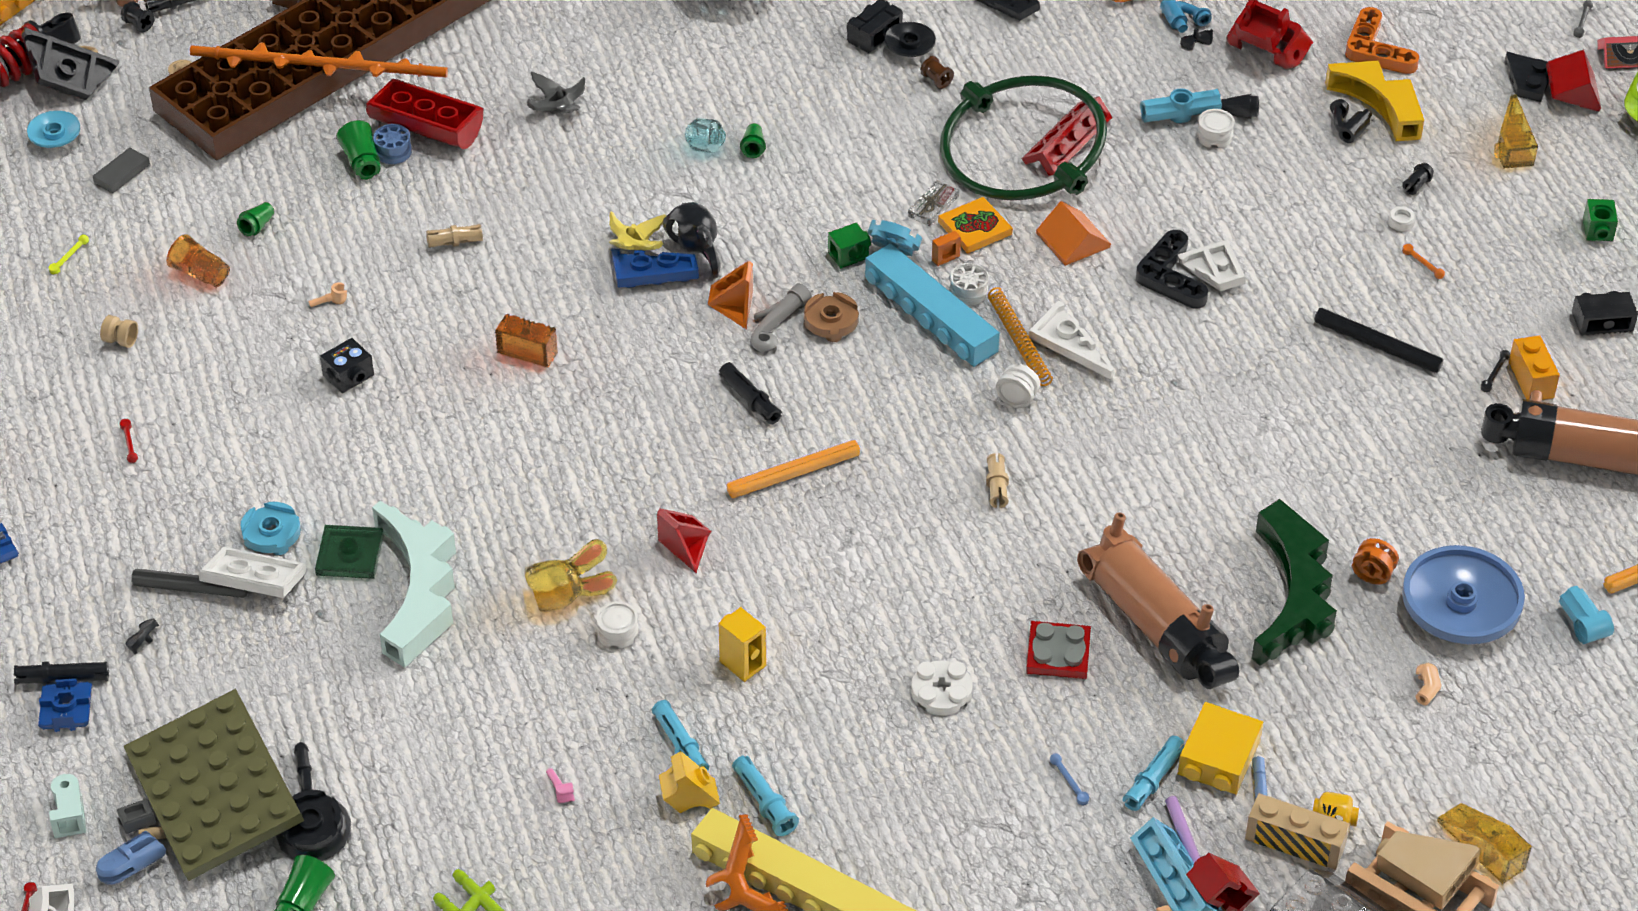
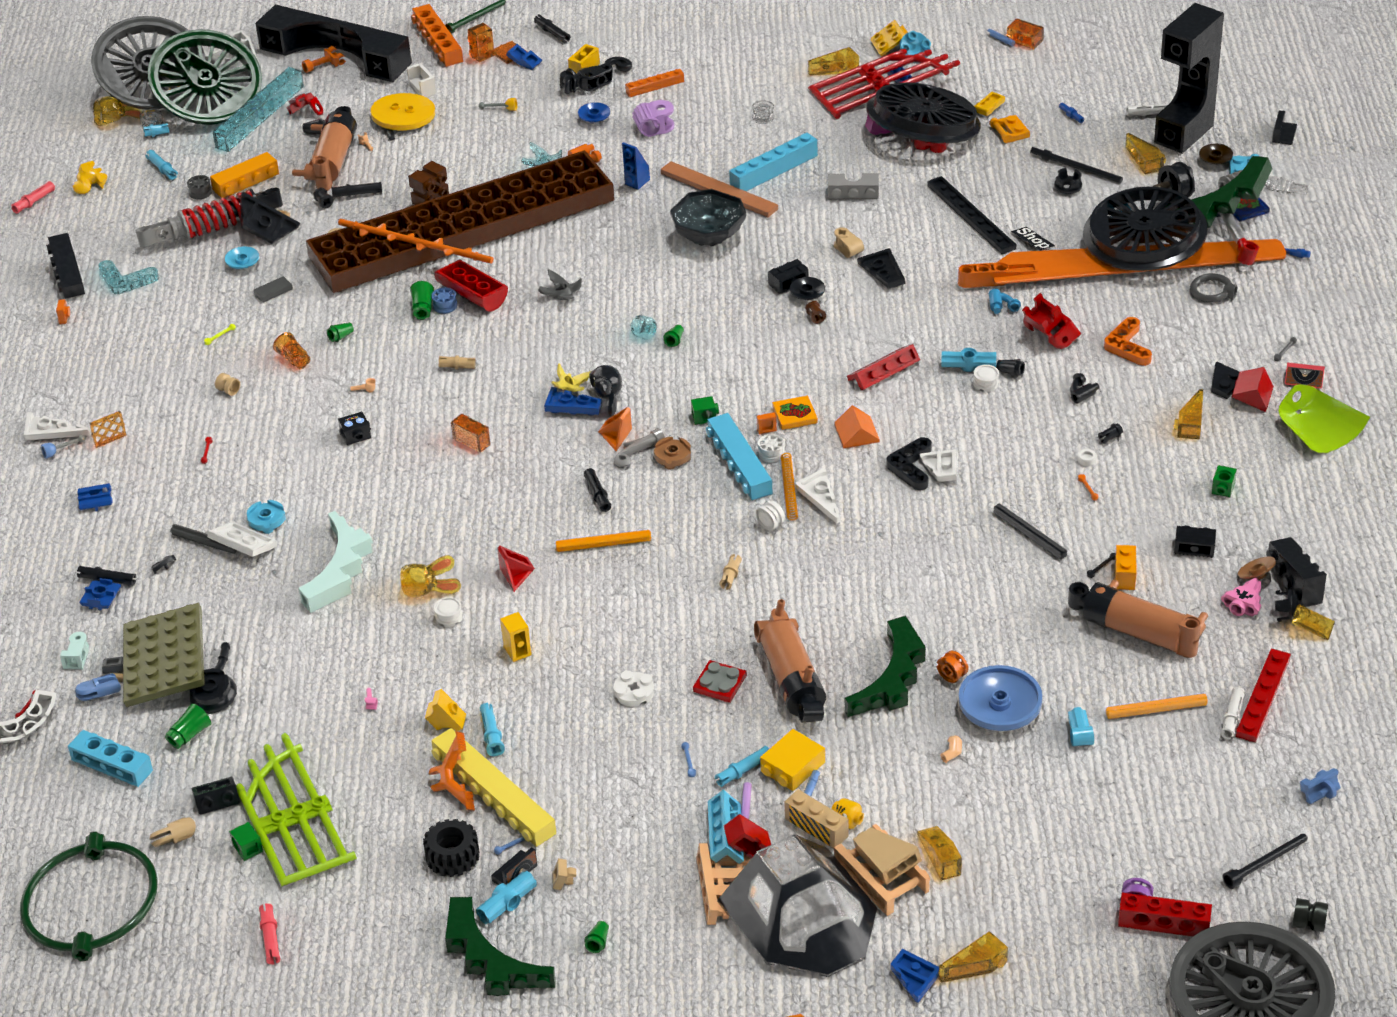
camera: 20 degrees right, 5 degrees down
(349, 551) = (307, 538): clear green plate -> none
(677, 733) = (455, 690): medium azure pin -> none
(895, 234) = (729, 406): medium azure plate -> none
(933, 203) = (774, 393): clear tile -> none
(1066, 176) = (866, 390): dark green piece -> none
(1203, 37) = (998, 320): black piece -> none
(1391, 99) = (1117, 378): yellow arch -> none

